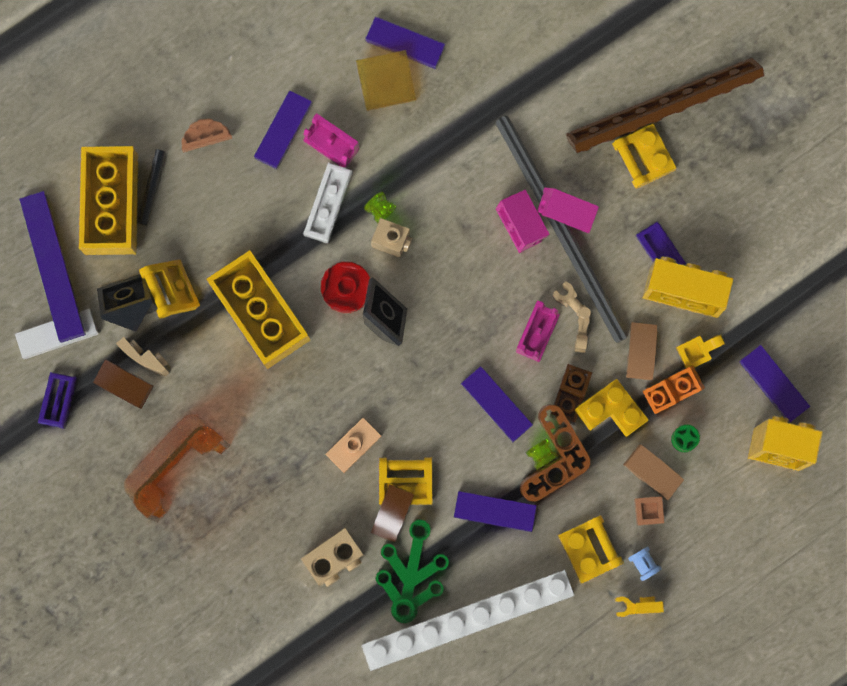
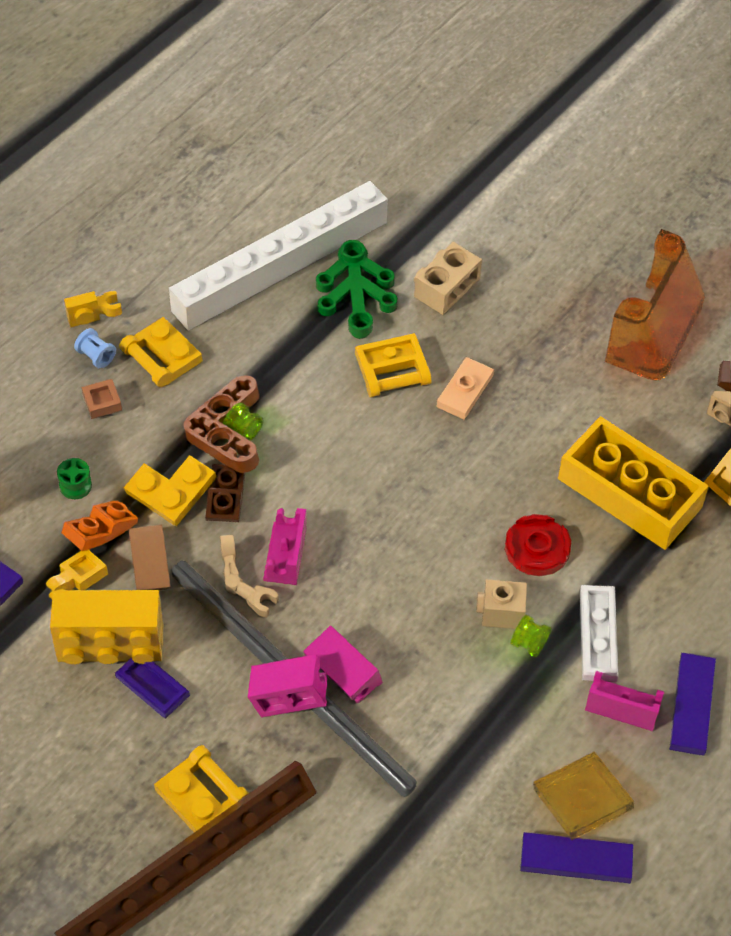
camera: 160 degrees right, 25 degrees down
(384, 313) = (479, 506): black slope -> none
(392, 513) = (396, 331): reddish brown slope -> none
(495, 511) = (282, 362): dark purple tile -> none
(496, 404) = (312, 465): dark purple tile -> none
(653, 472) = (108, 437): medium nougat slope -> none

